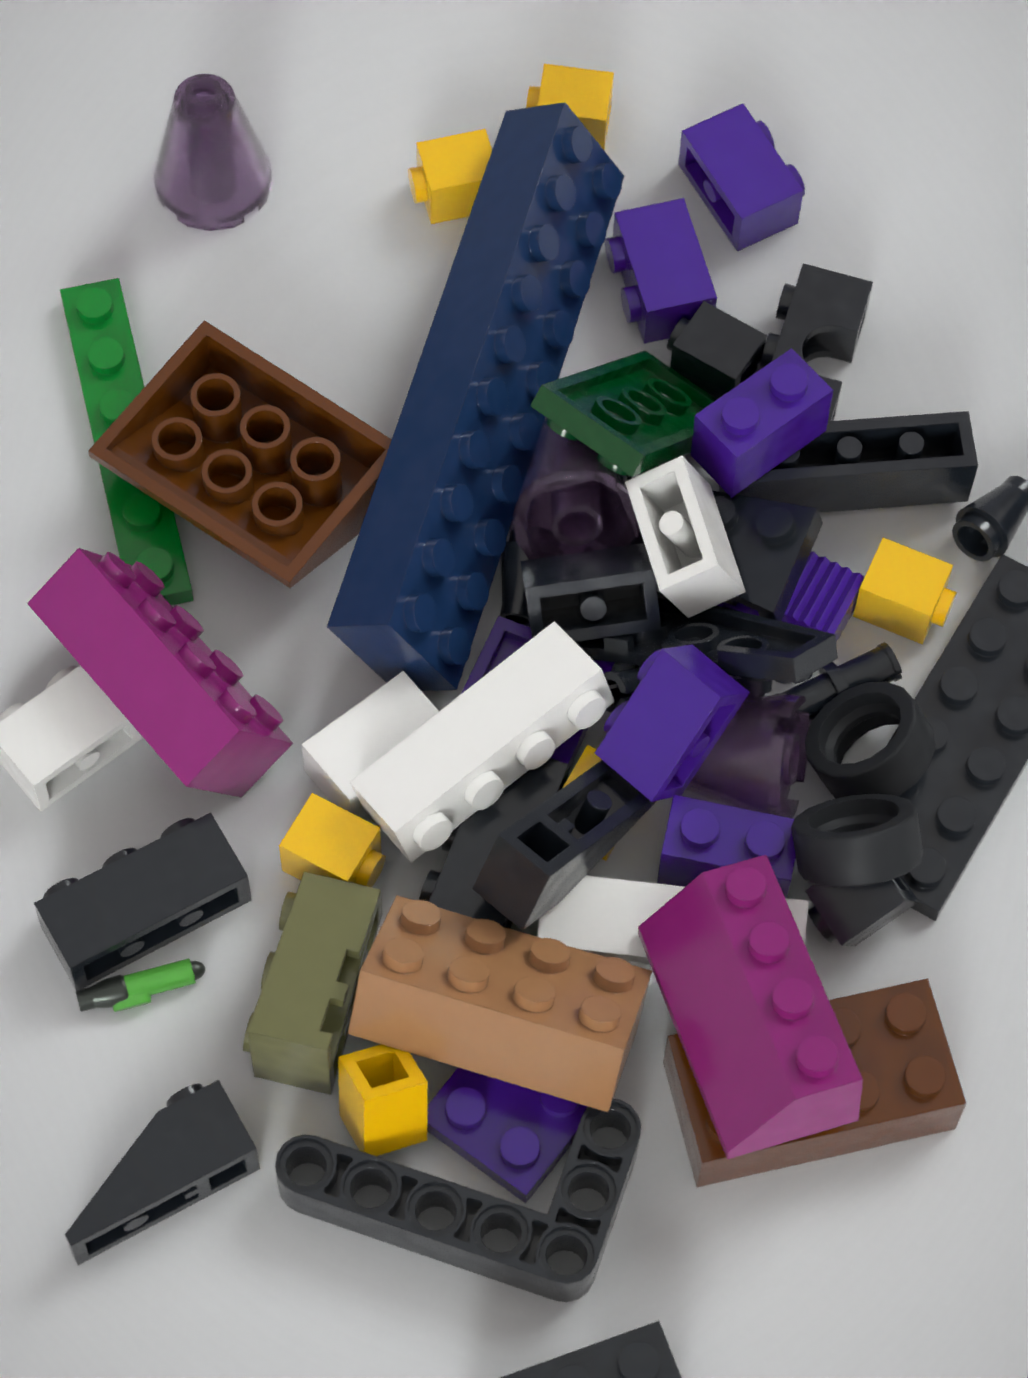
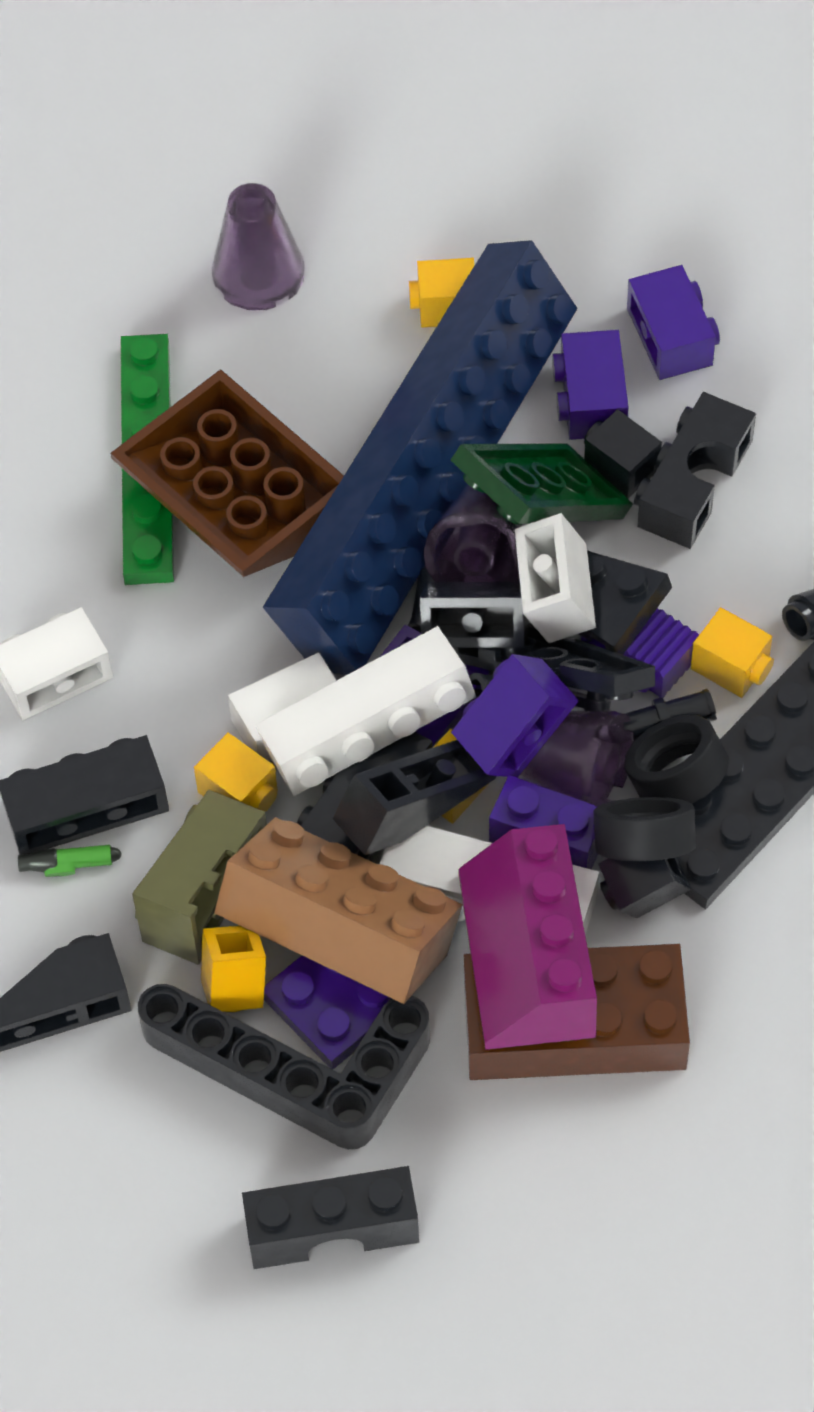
camera: 15 degrees right, 5 degrees down
(161, 672) = (131, 625): magenta brick -> none
(583, 90) = (559, 244): yellow brick -> none
(761, 422) = (635, 501): dark purple brick -> none
(877, 465) = (711, 547): black brick -> none

